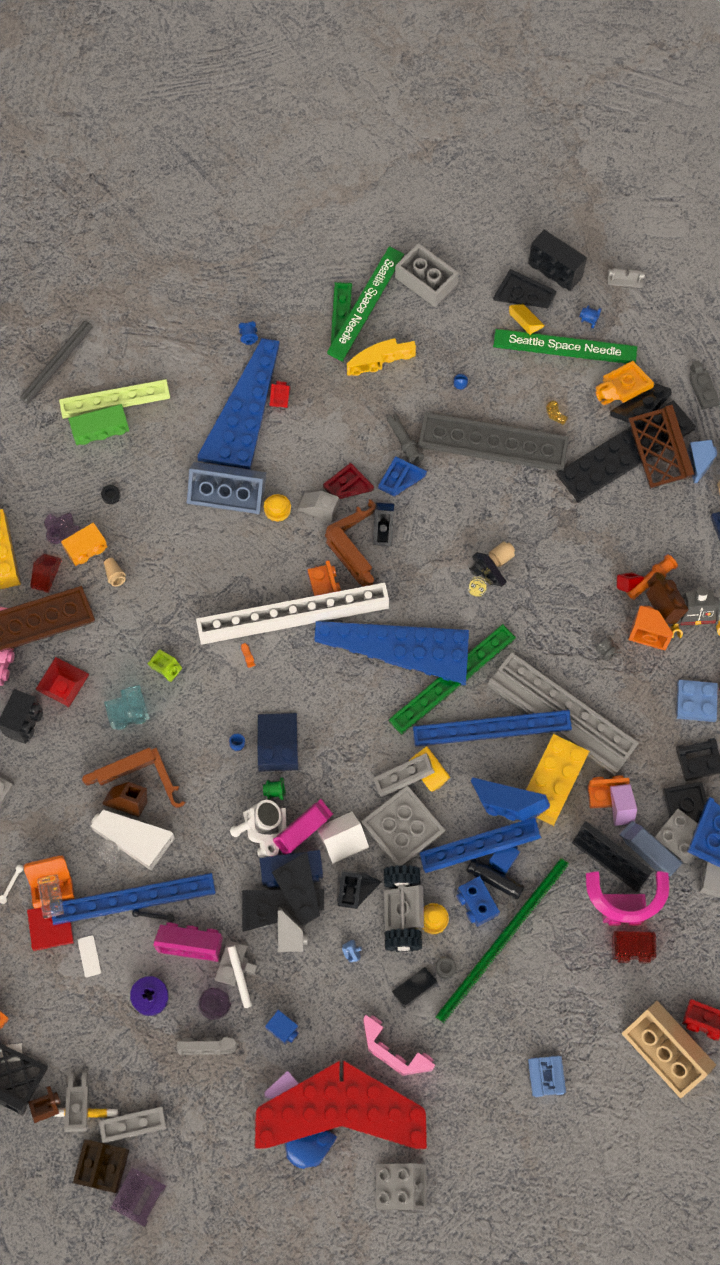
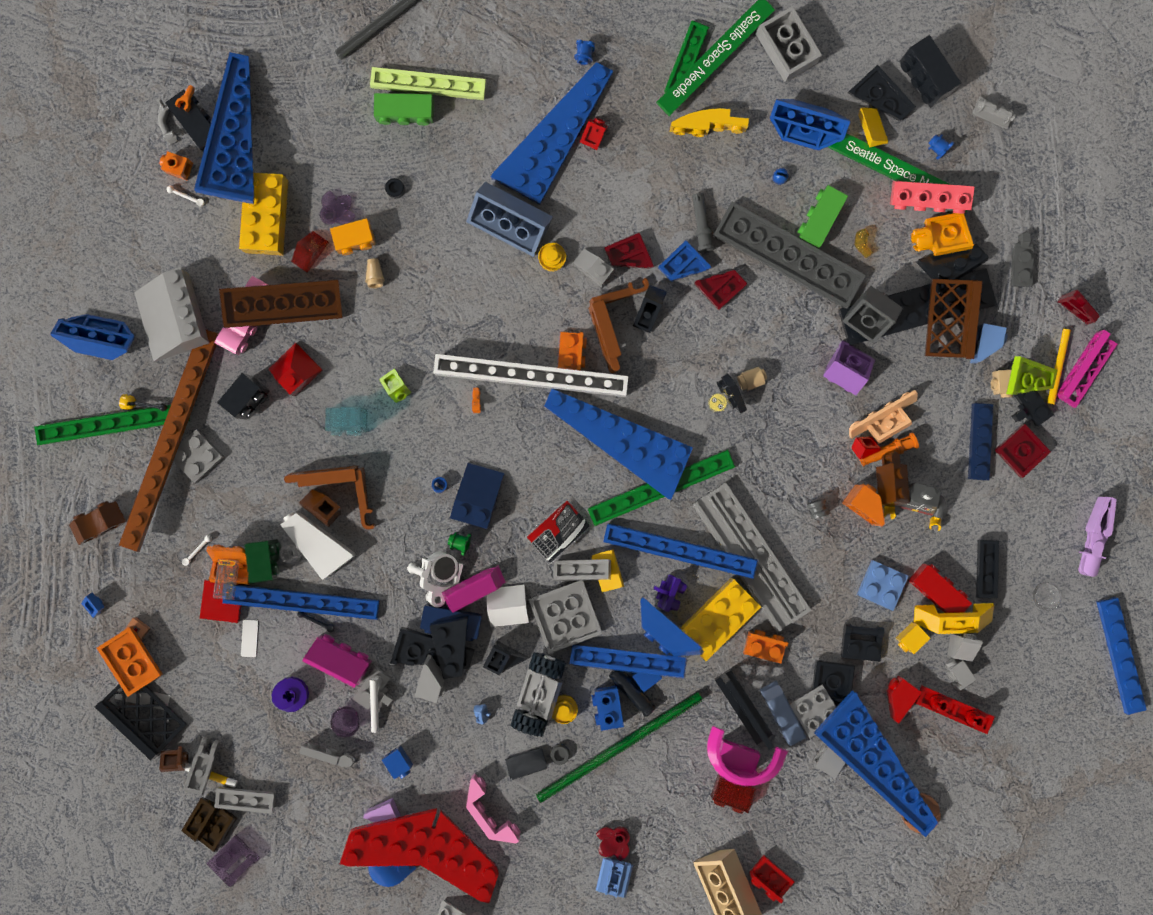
camera: 20 degrees right, 20 degrees up
(83, 864) = (262, 560): none -> dark green slope
(367, 749) = (558, 531): none -> slope
(442, 487) = (721, 288): none -> dark red wing
(468, 333) = (808, 124): none -> blue wedge
(494, 769) = (667, 593): none -> dark purple hips
(510, 400) = (822, 216): none -> bright green brick
(531, 1042) = (613, 845): none -> dark red plate
(586, 519) = (849, 368): none -> medium lavender slope
(587, 461) = (872, 314): none -> dark grey brick
(600, 354) = (932, 196): none -> coral brick
(623, 804) = (773, 663): lavender slope -> none
(638, 551) = (887, 421): none -> light nougat bracket

